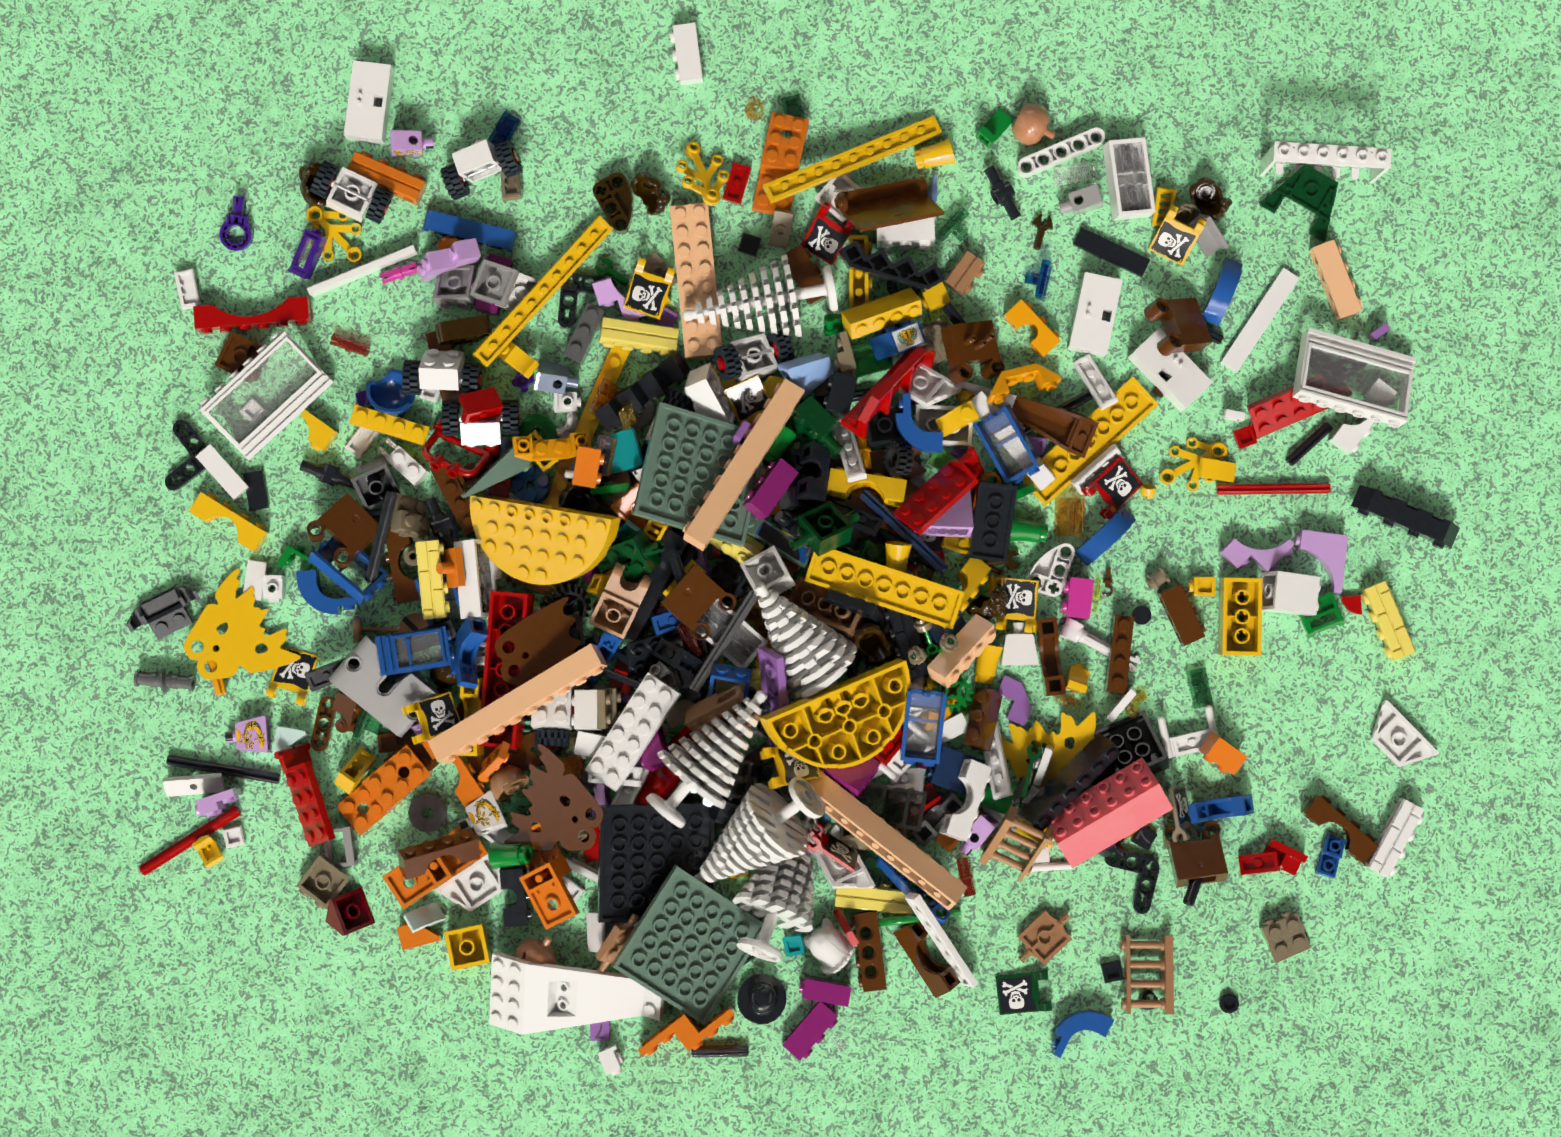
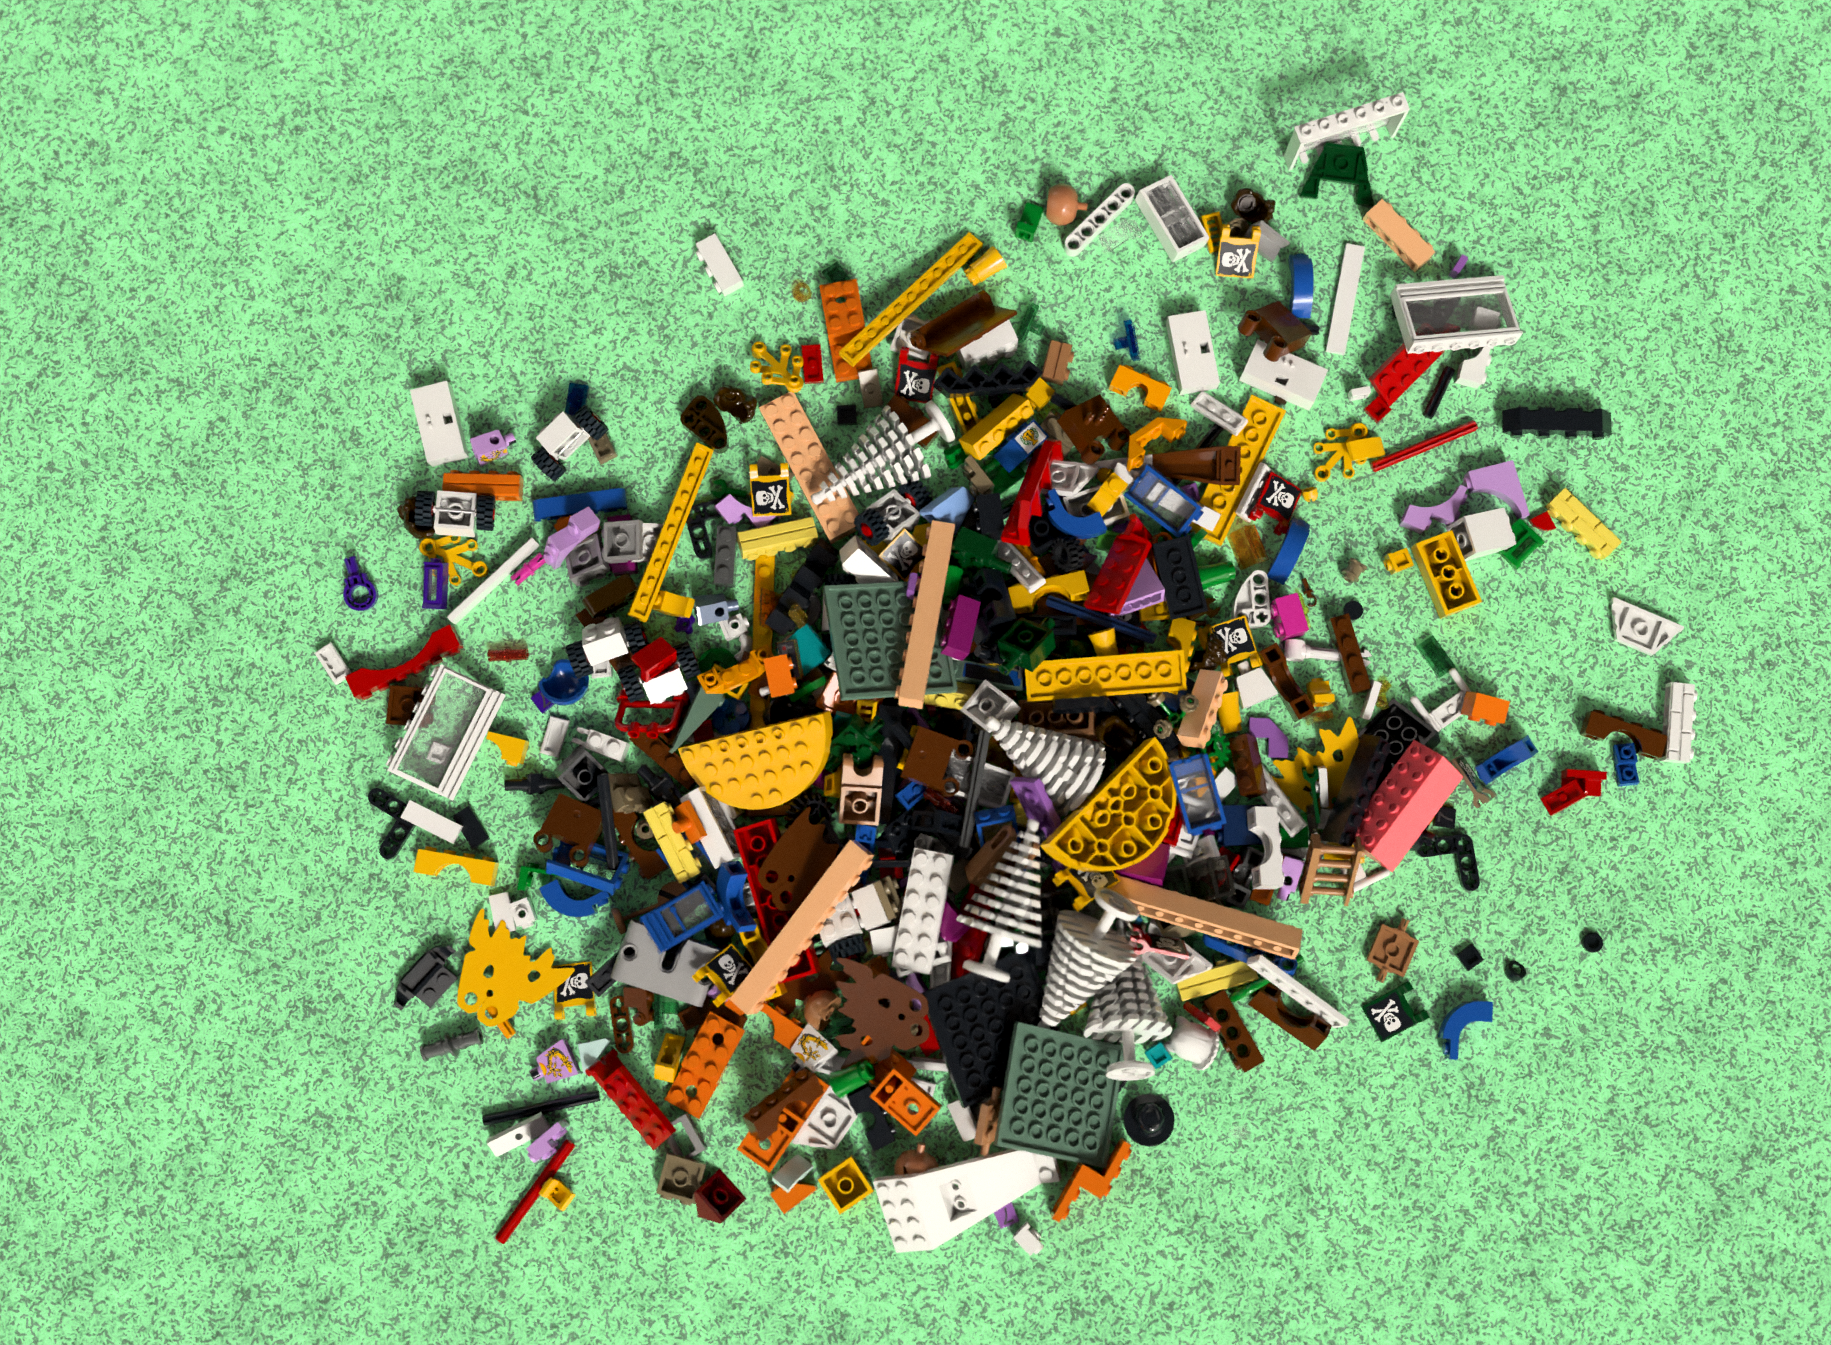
camera: 20 degrees left, 5 degrees down
(234, 836) = (576, 1170): white tile -> none
(389, 425) = (575, 713): yellow arch -> none
(416, 812) = (743, 1067): flat silver tile -> none
(494, 761) = (800, 993): orange plate -> none
(667, 318) = (798, 511): medium lavender tile -> none
(721, 1051) = (1130, 1187): black axle -> none
(810, 1030) = (1208, 1131): magenta brick -> none
(825, 990) = (1207, 1086): magenta brick -> none
(932, 189) = (996, 300): medium blue bar -> none
(965, 876) = (1291, 919): clear red axle -> none
(1002, 192) = (1061, 276): black pin -> none
(1041, 230) = (1111, 297): dark brown bar -> none
(1091, 200) = (1144, 248): light grey torso -> none
(1111, 252) = (1183, 291): black tile -> none
(1165, 983) = (1525, 947): medium nougat fence -> none
(1182, 614) = (1390, 594): reddish brown brick -> none
(1196, 861) = (1505, 818): reddish brown piece -> none
(1285, 936) = (1616, 856): dark tan plate -> none

